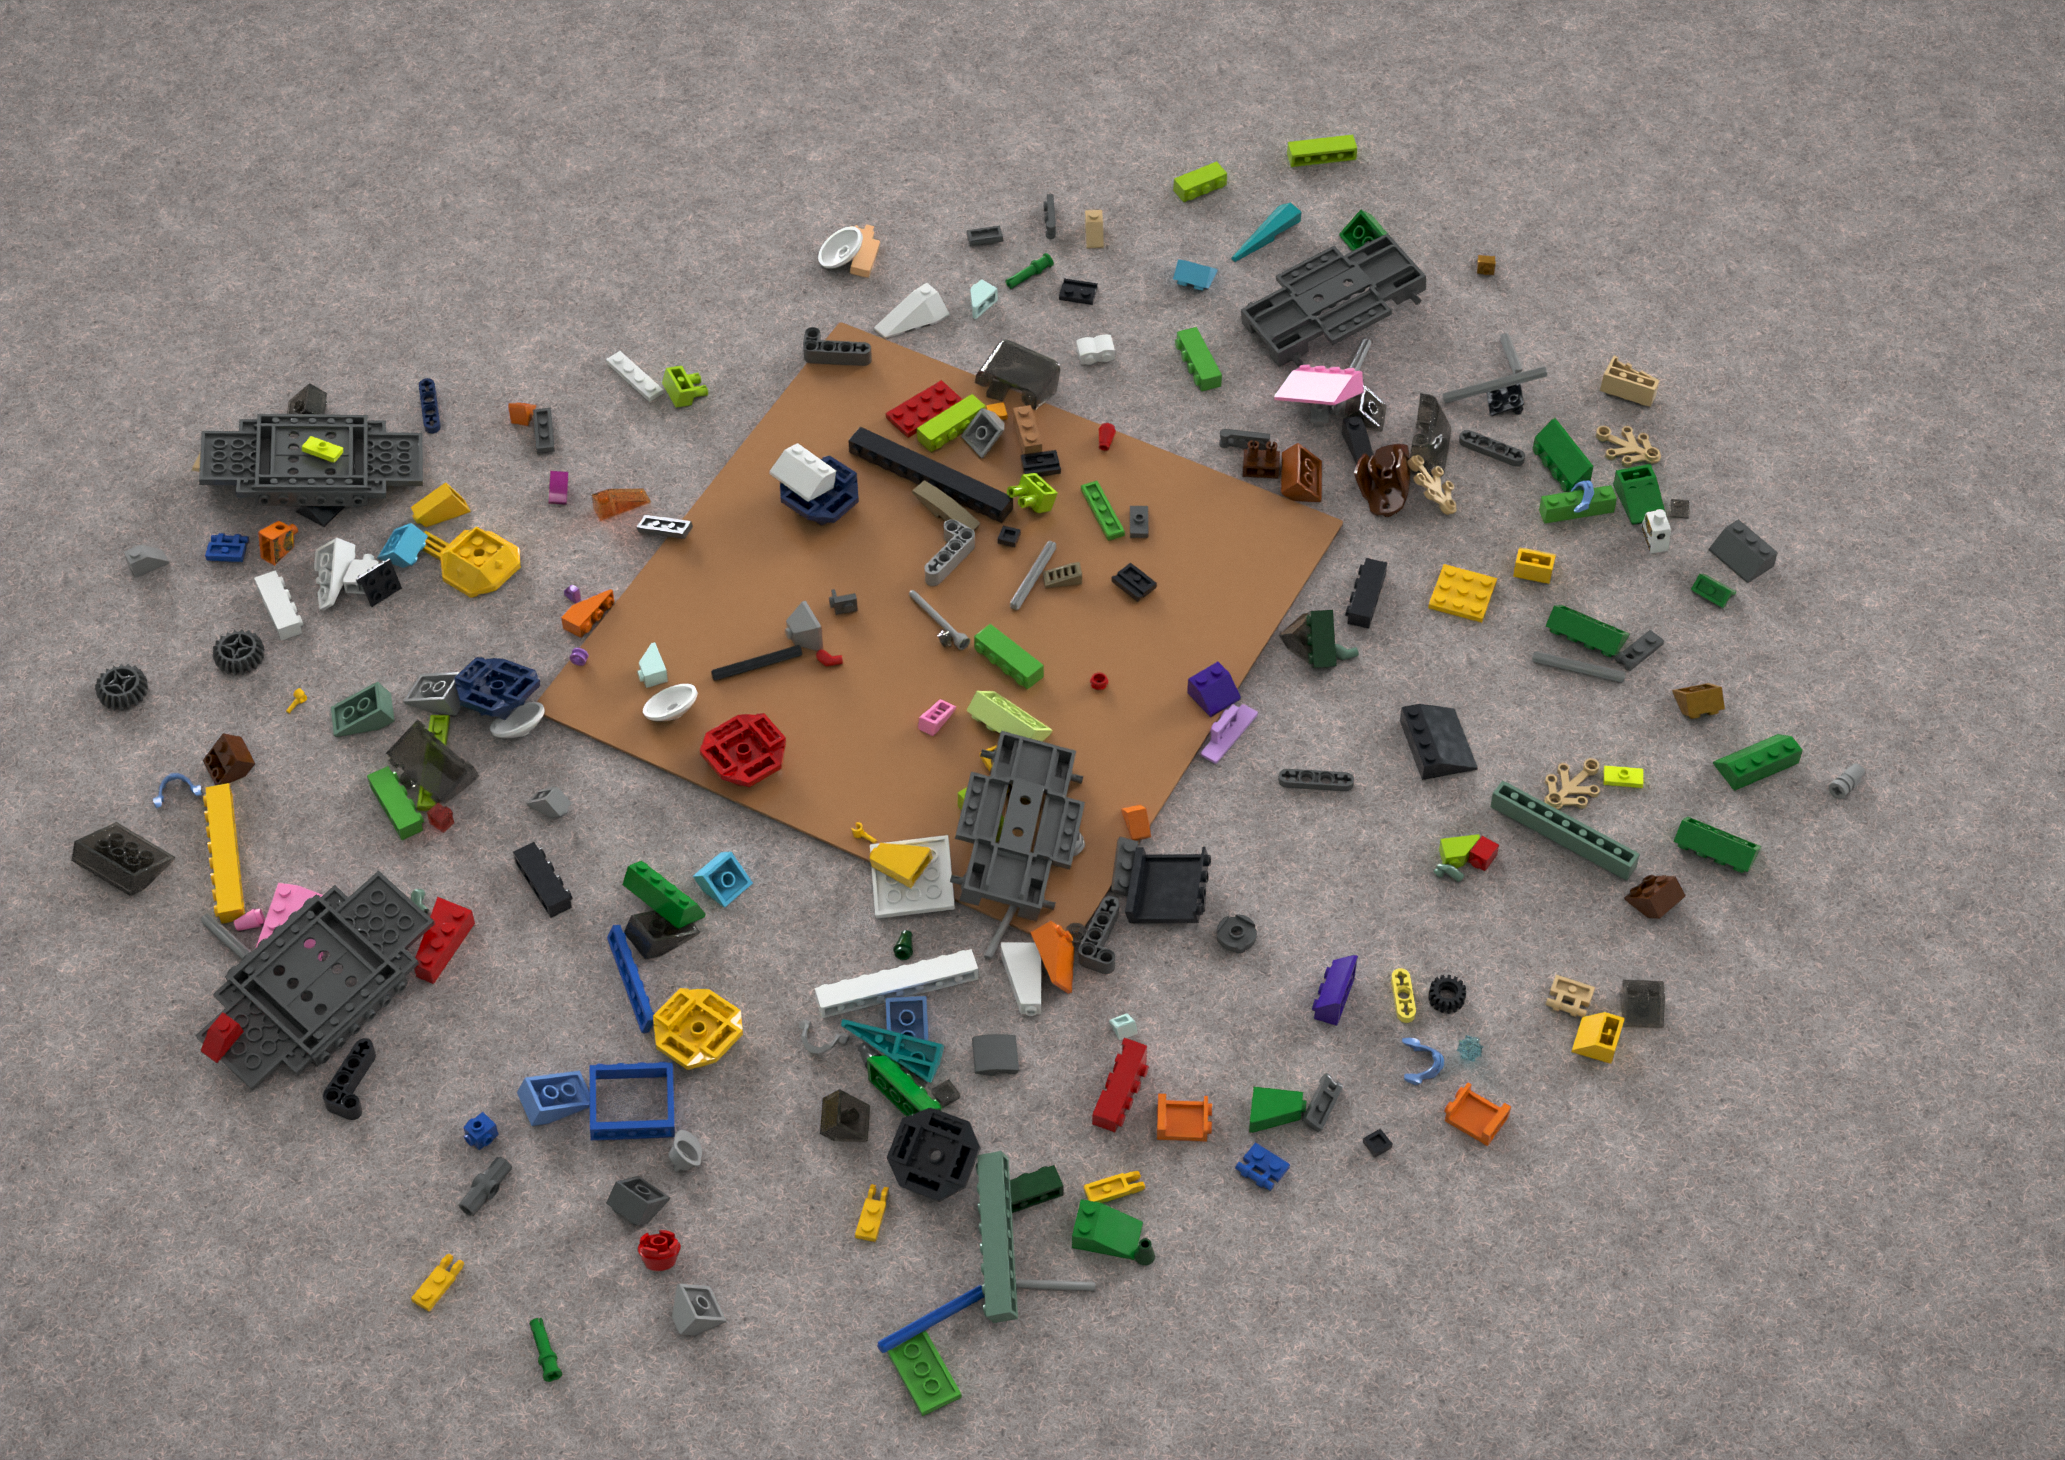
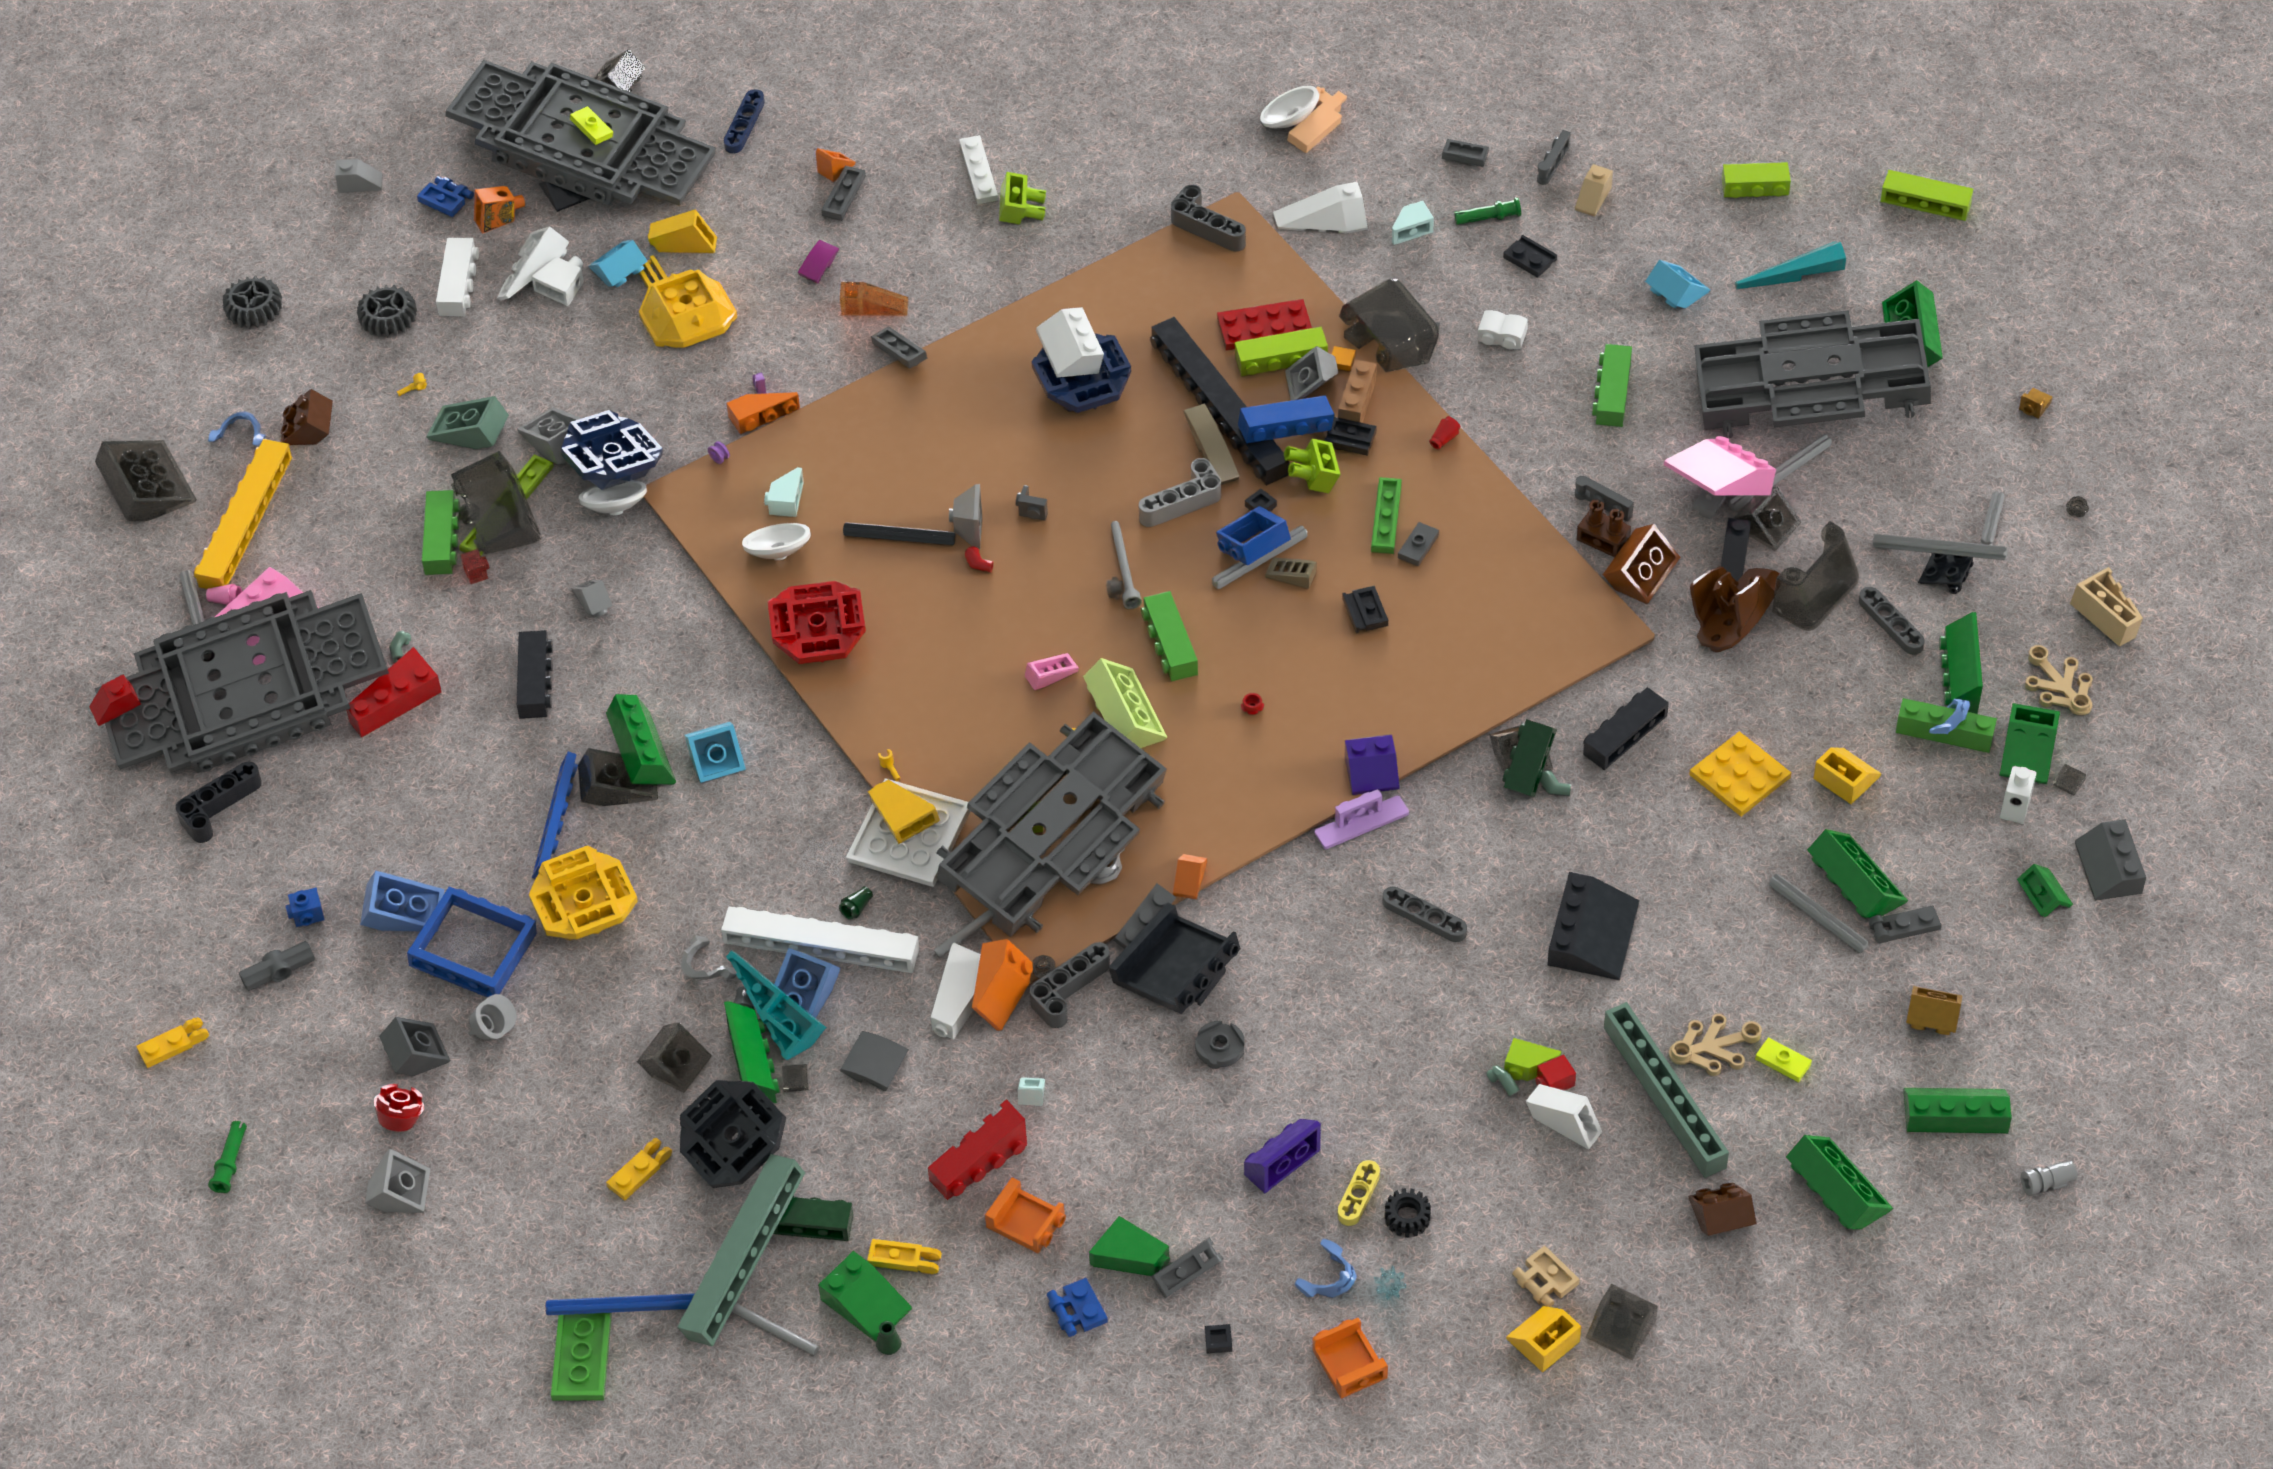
camera: 30 degrees right, 0 degrees up
(379, 582) = (568, 292): black hinge -> none
(993, 468) = (1285, 419): none -> blue brick
(1019, 547) = (1273, 535): none -> blue window
(1433, 485) = (1789, 662): tan plant -> none
(1508, 876) = (1565, 1113): none -> white slope
(1560, 323) = (2077, 506): none -> clear smoke plate

